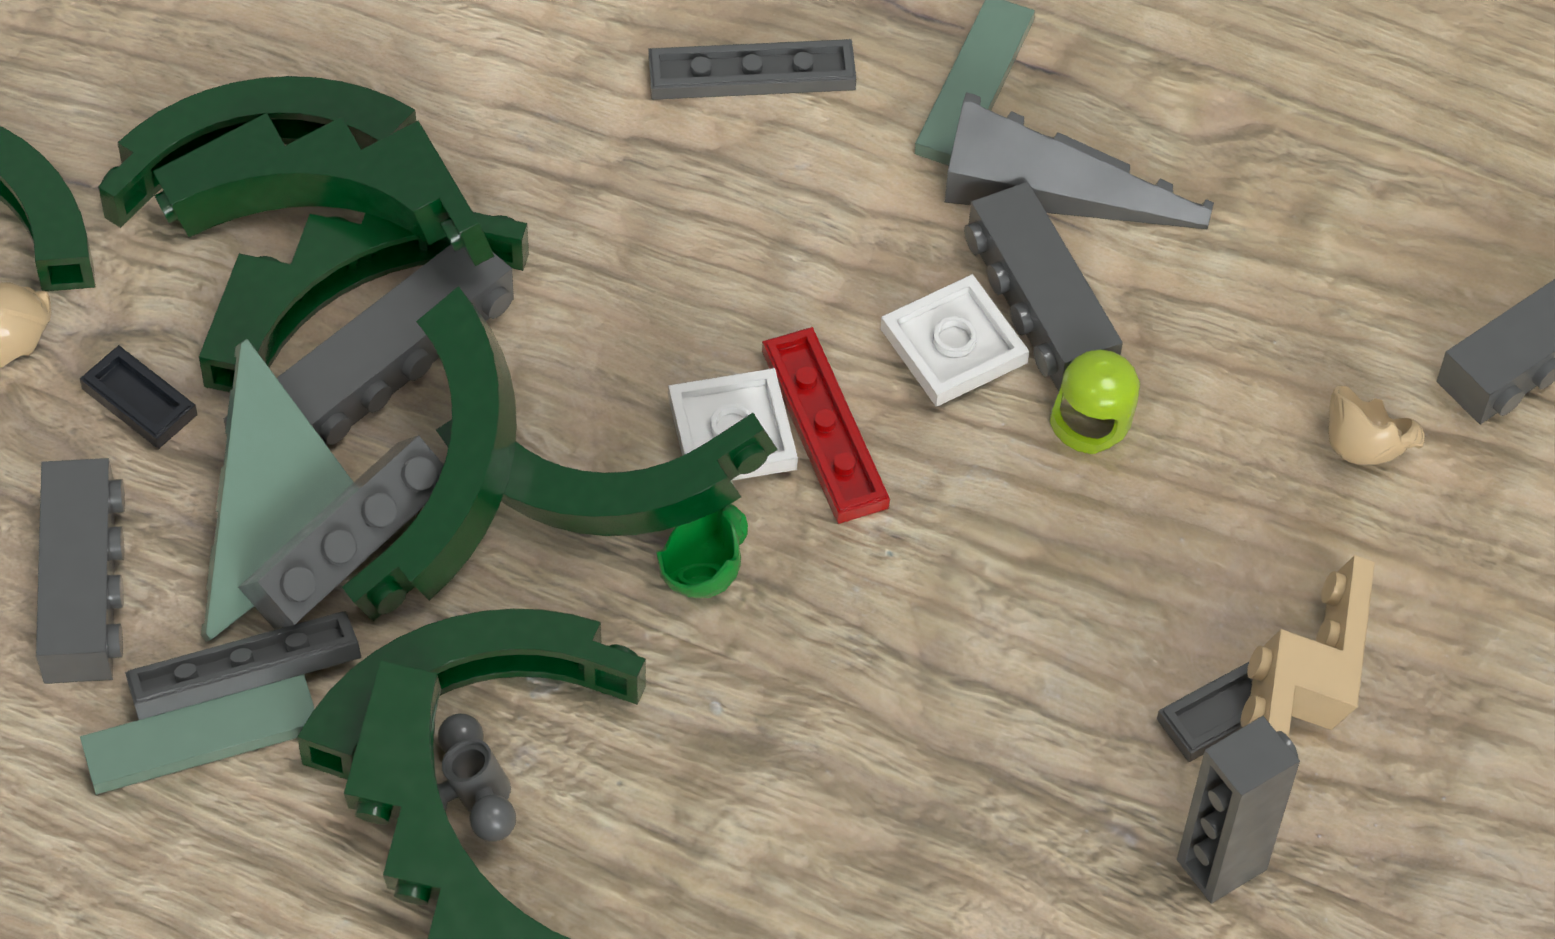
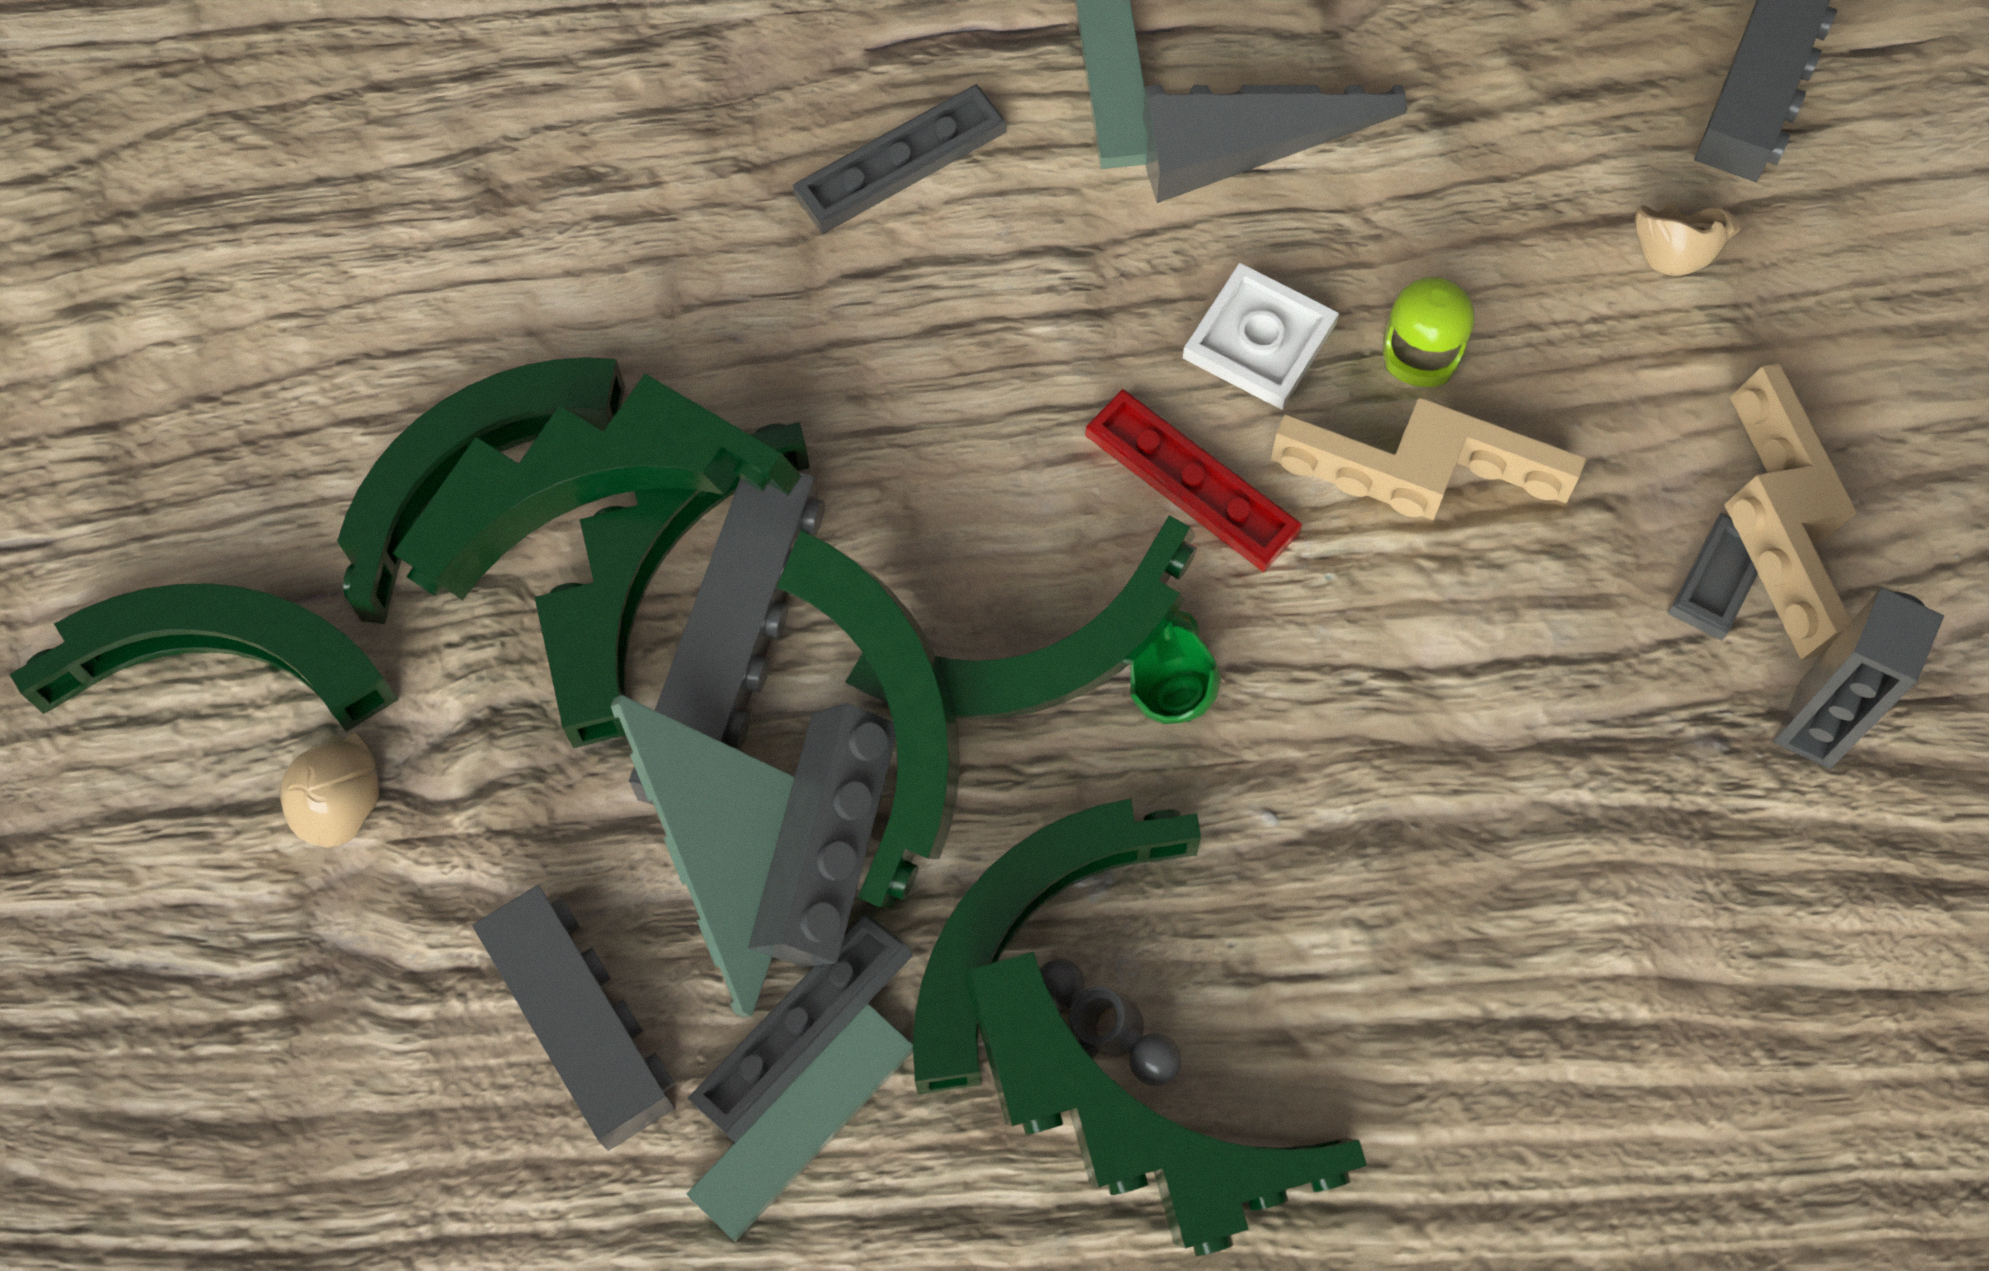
camera: 25 degrees left, 10 degrees up
(138, 396) = (516, 794): black tile -> none
(715, 404) = (1107, 524): white plate -> none
(1026, 498) = (1425, 459): none -> tan bracket
(1038, 279) = (1306, 241): dark grey brick -> none

